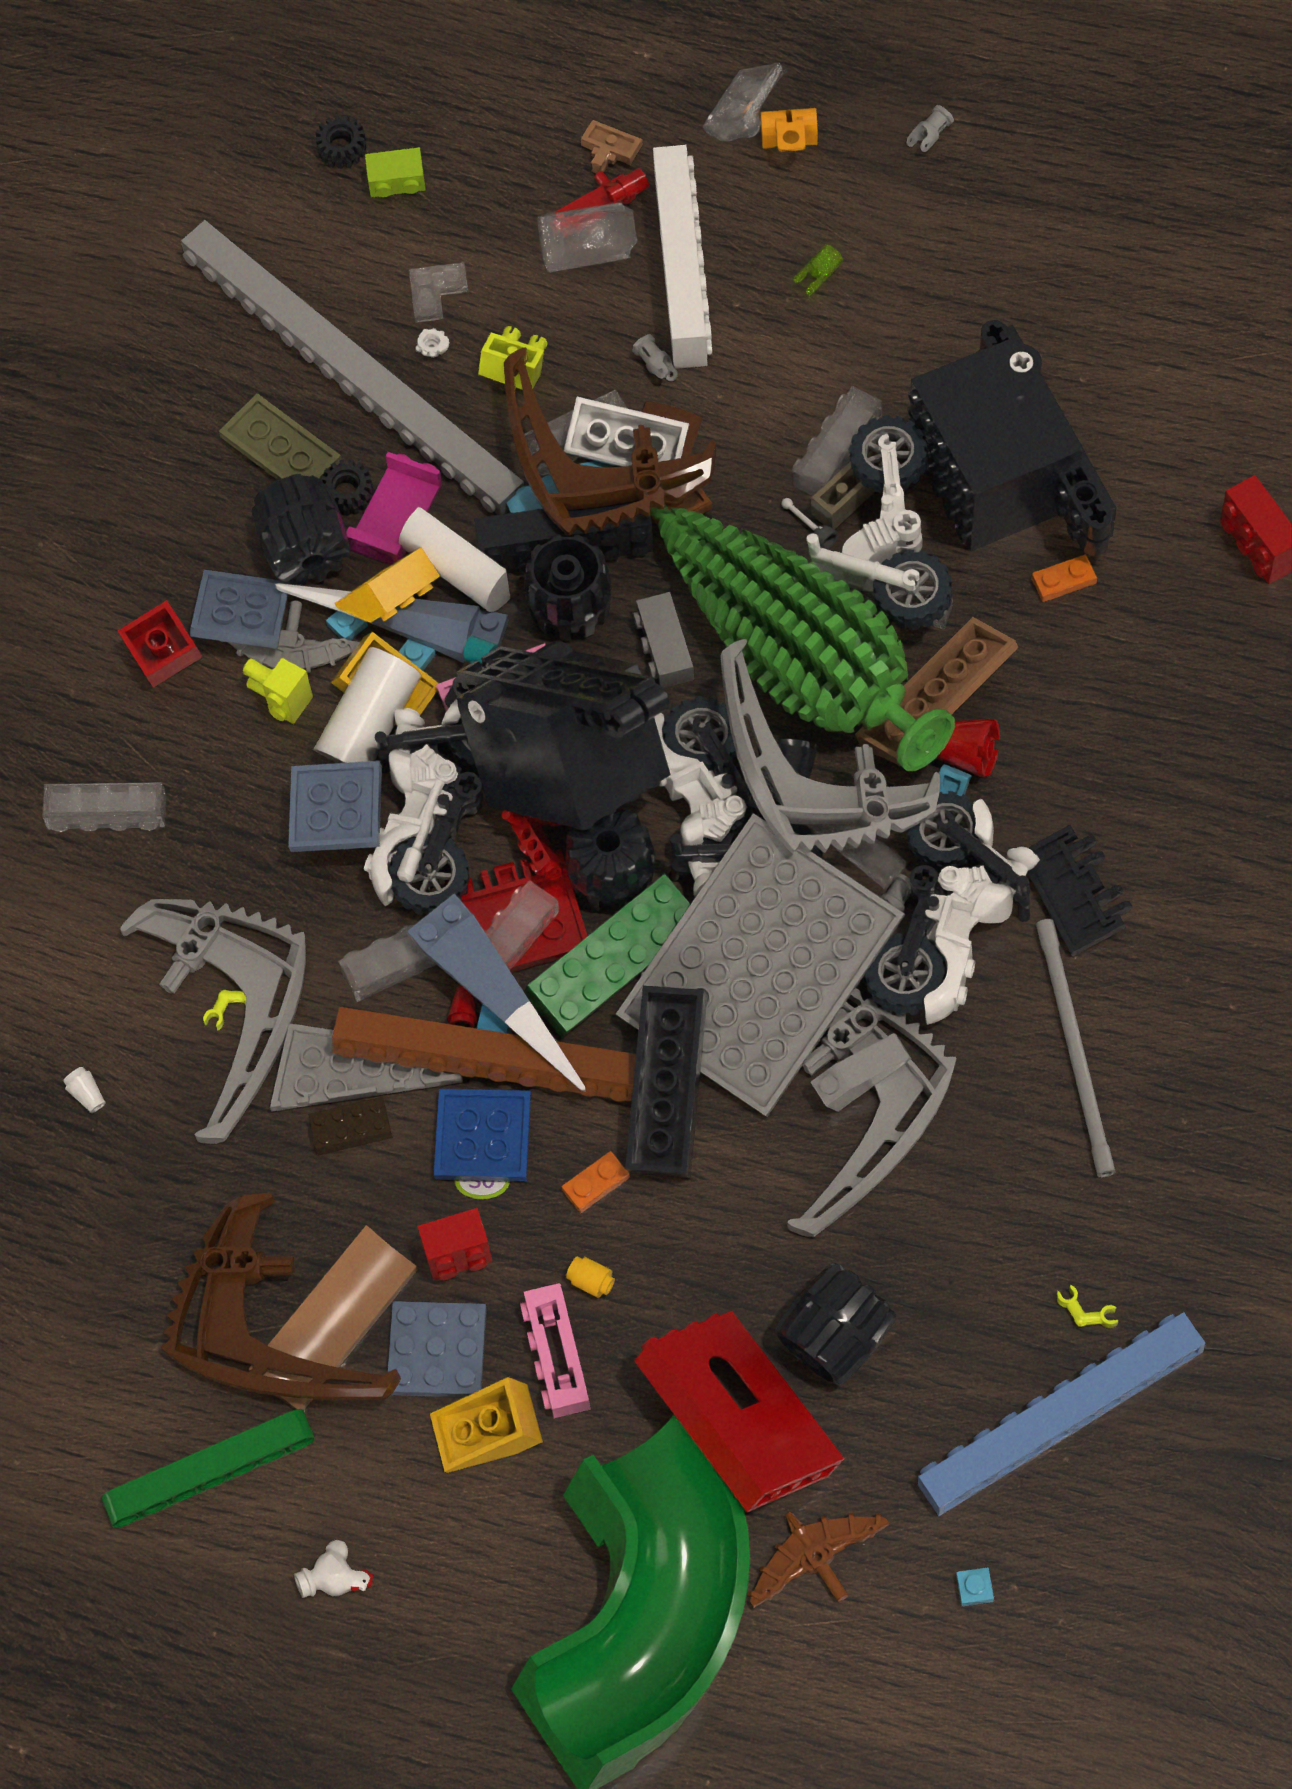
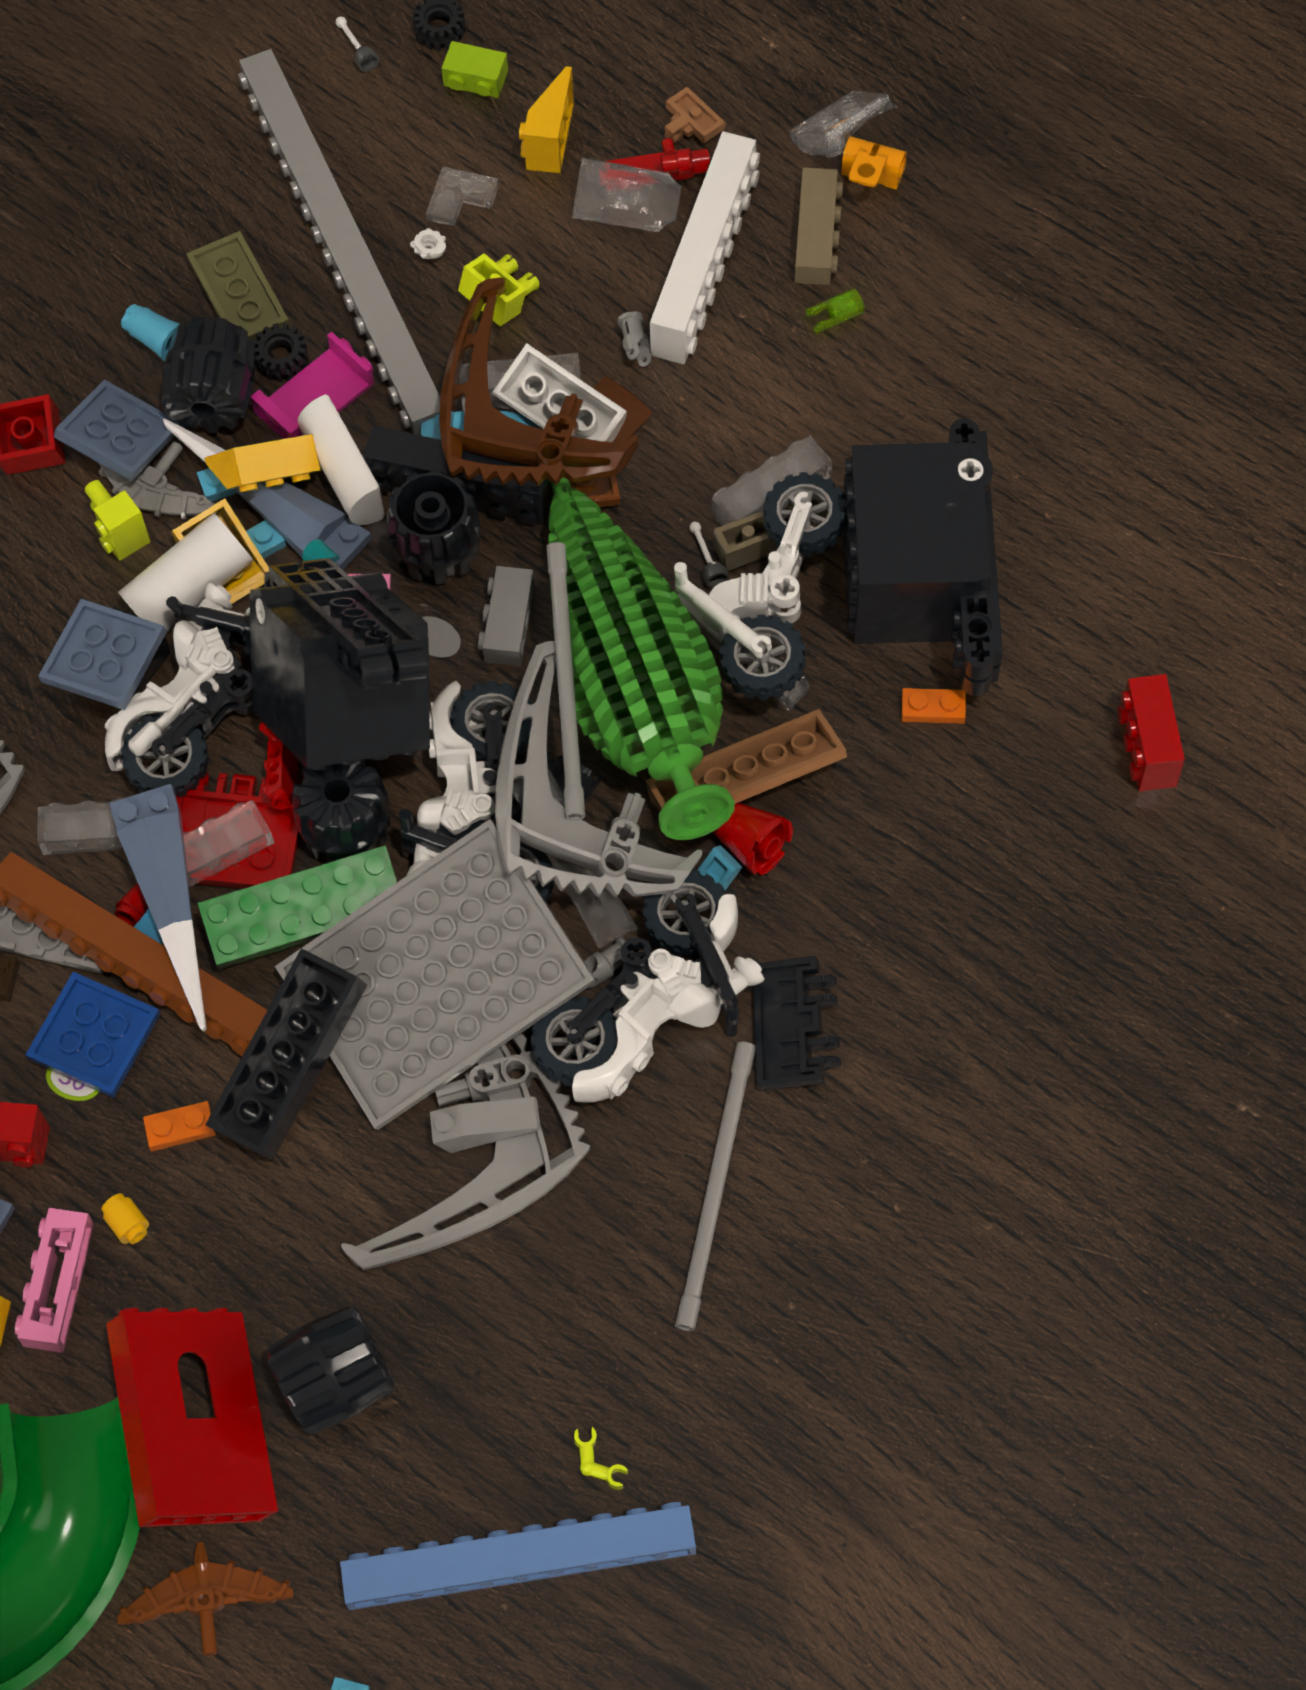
camera: 20 degrees right, 0 degrees up
(225, 510) = (149, 328): none -> medium azure plant
(289, 196) = (364, 56): none -> dark grey hinge
(490, 206) = (548, 126): none -> yellow slope
(766, 201) = (816, 226): none -> dark tan brick
(813, 761) = (573, 789): none -> light grey piece
(930, 128) = (1011, 214): light grey piece -> none

